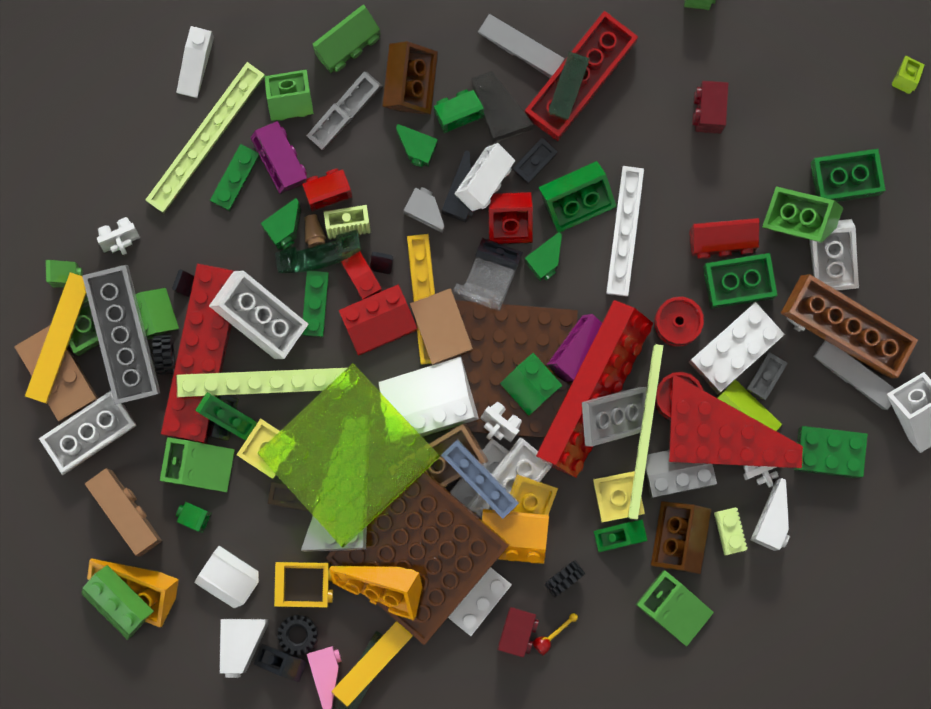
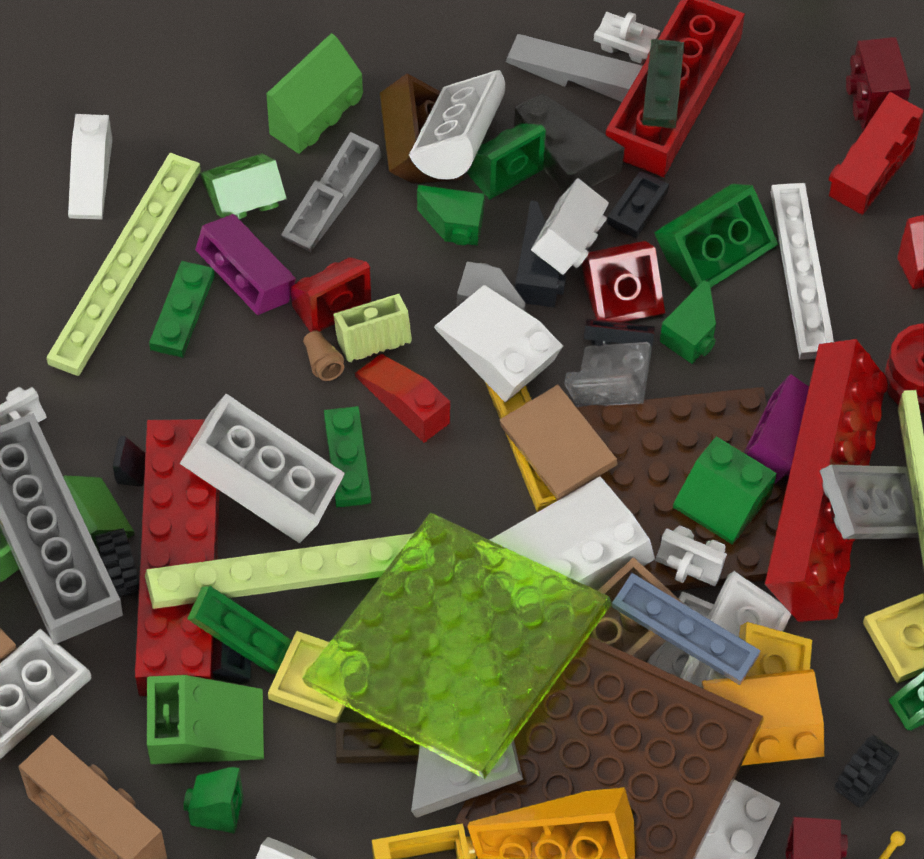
camera: 10 degrees left, 25 degrees down
(283, 225) = (269, 347): green slope -> none
(318, 256) = (342, 385): clear green slope -> none
(378, 319) = (453, 452): red slope -> none
(381, 262) = (441, 373): black slope -> none
(420, 250) = (499, 341): none -> white slope
(431, 86) = (458, 126): none -> white brick
(559, 30) = (626, 35): none -> white hips
(693, 159) = (876, 154): none -> red wedge

